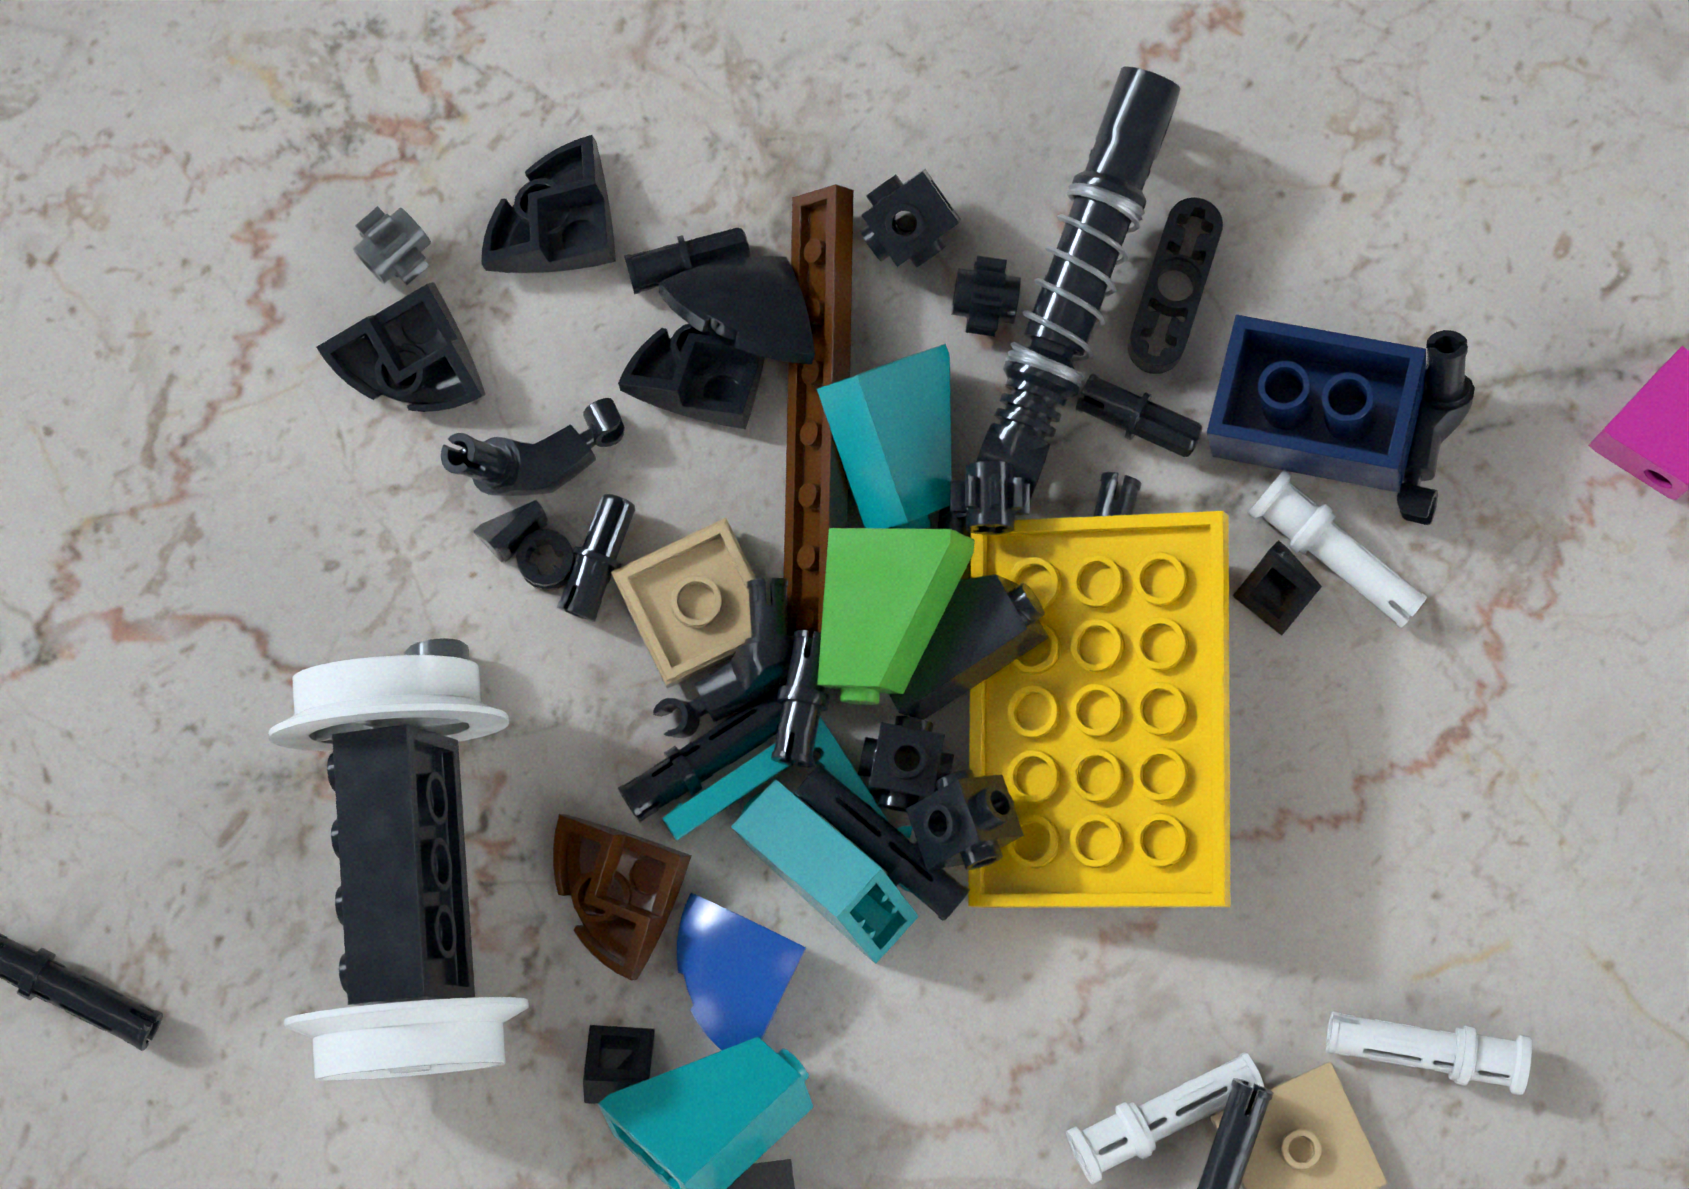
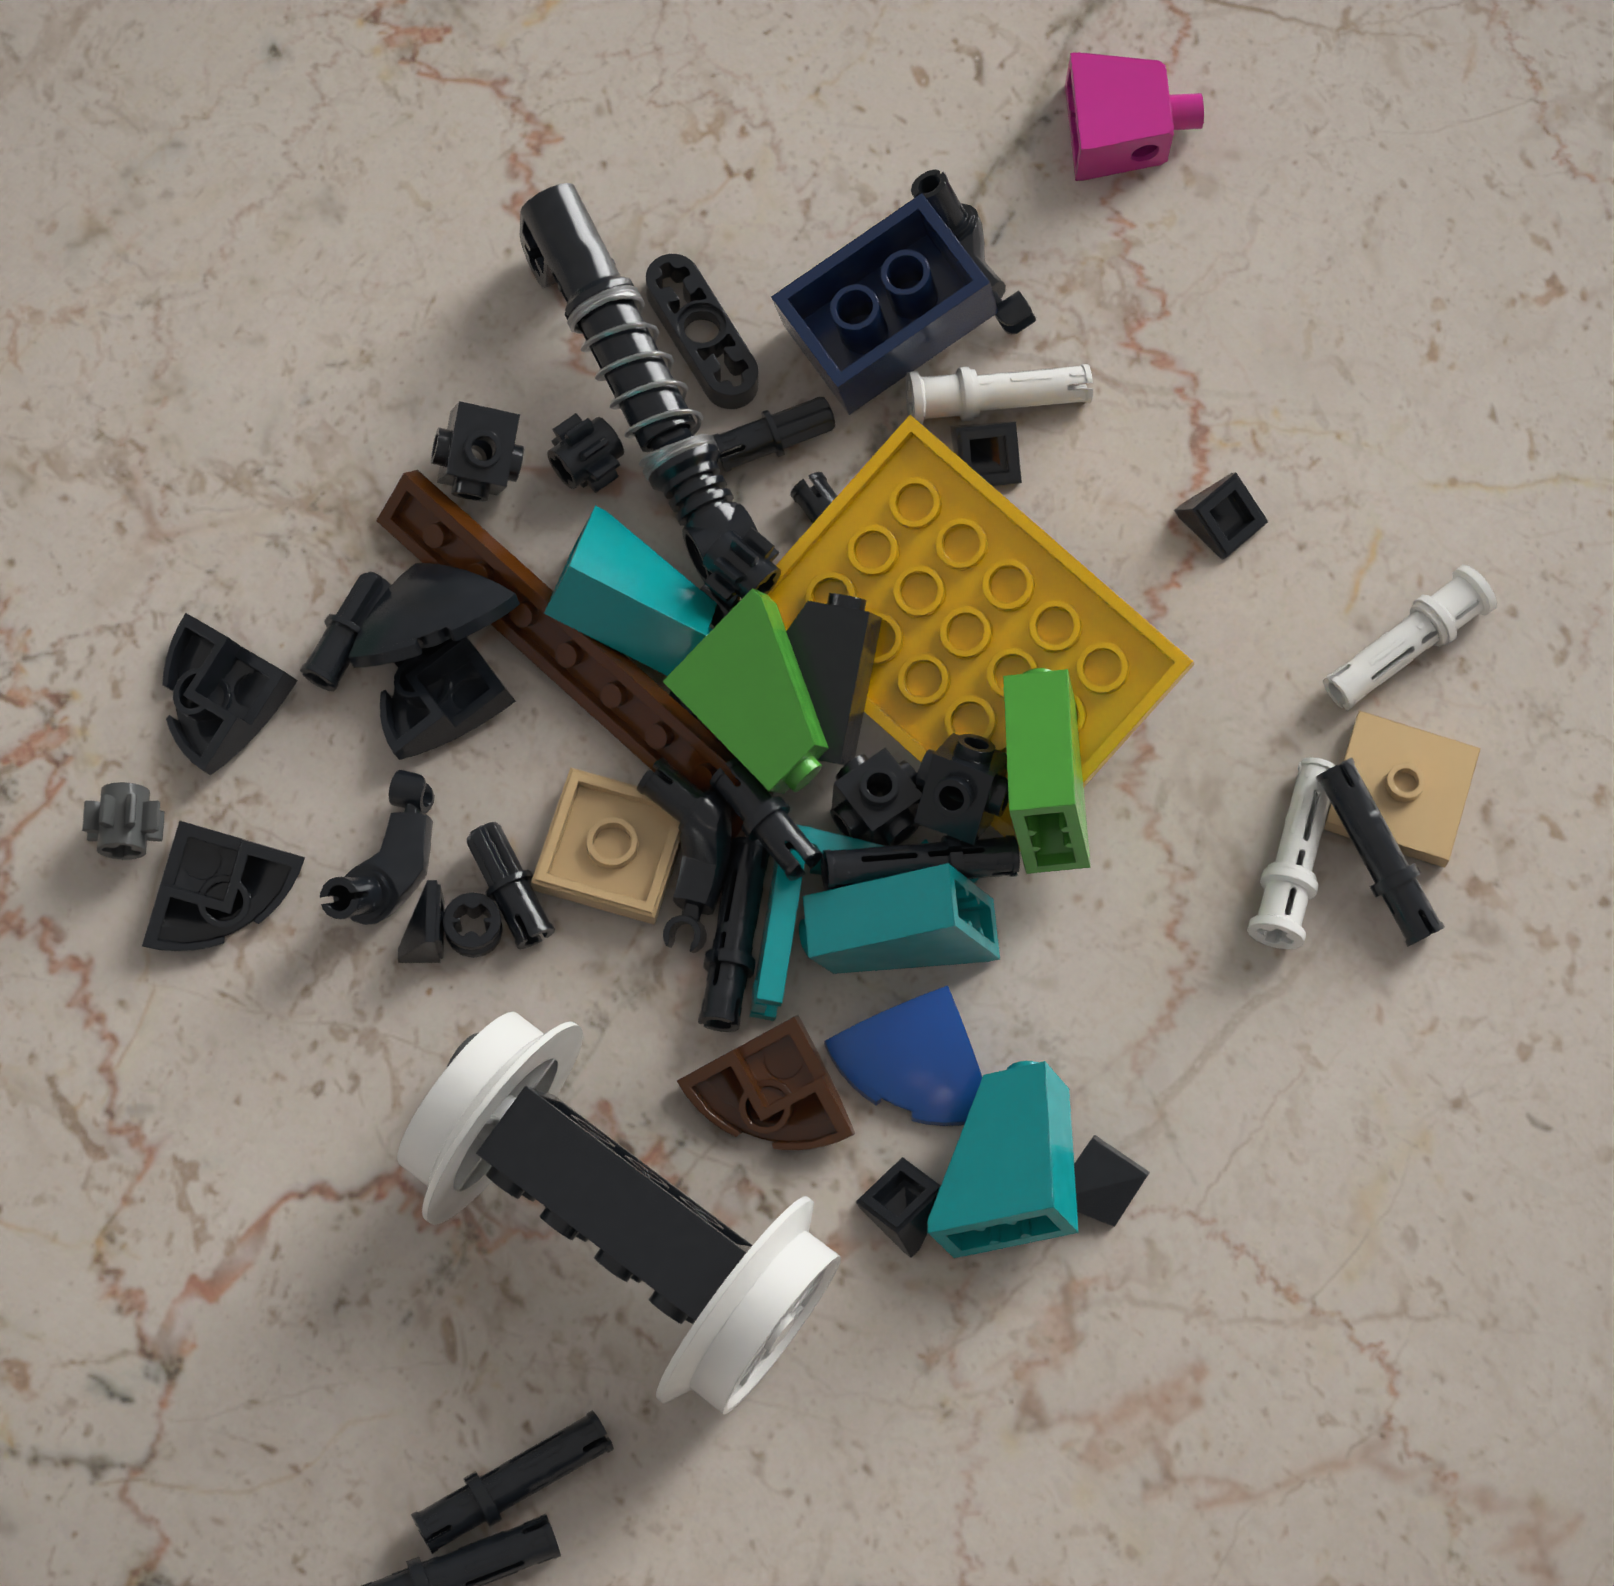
camera: 50 degrees left, 10 degrees down
(152, 965) = (511, 1482): none -> black pin
(1033, 869) = (1045, 771): none -> bright green slope
(1401, 813) = (1223, 515): none -> black slope

